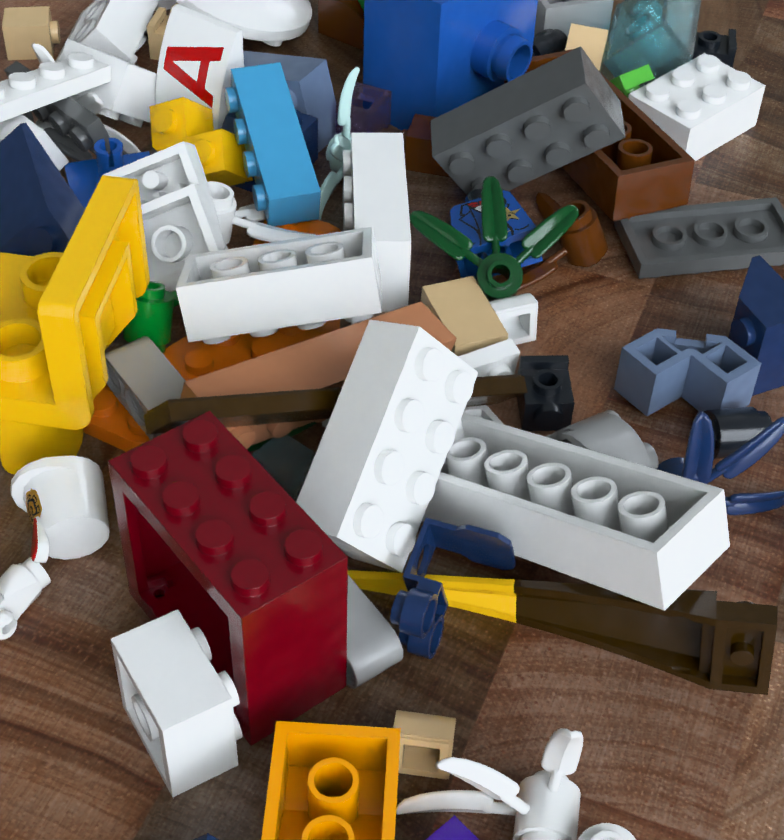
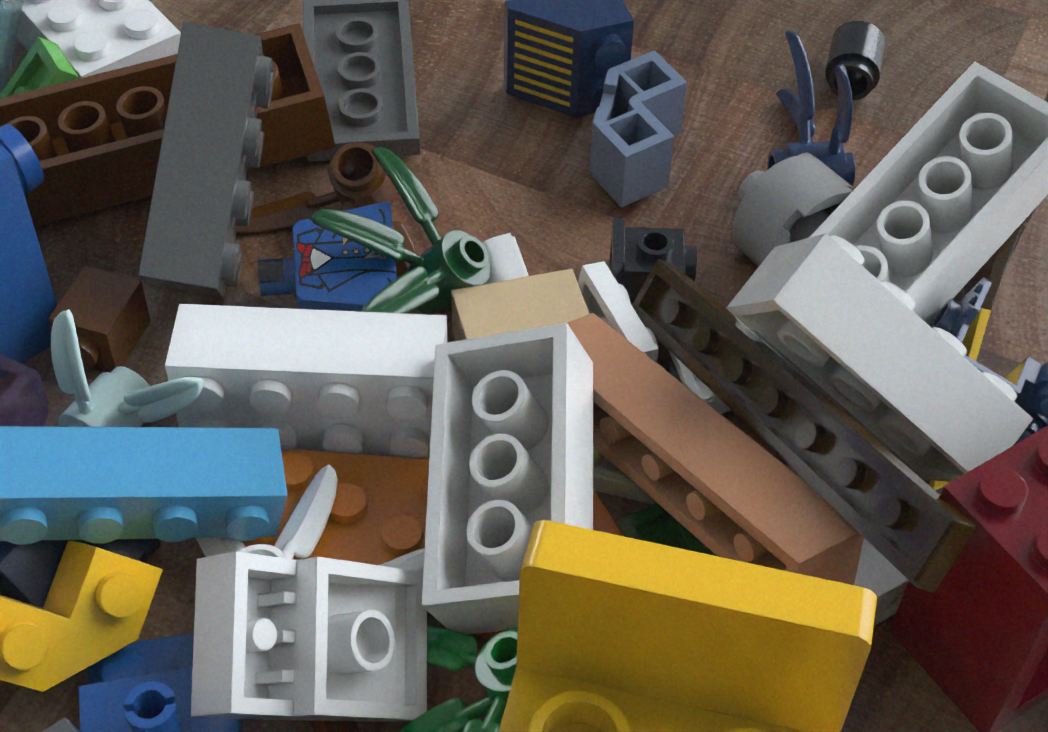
camera: 85 degrees left, 5 degrees up
(735, 427) = (710, 116): black brick -> none

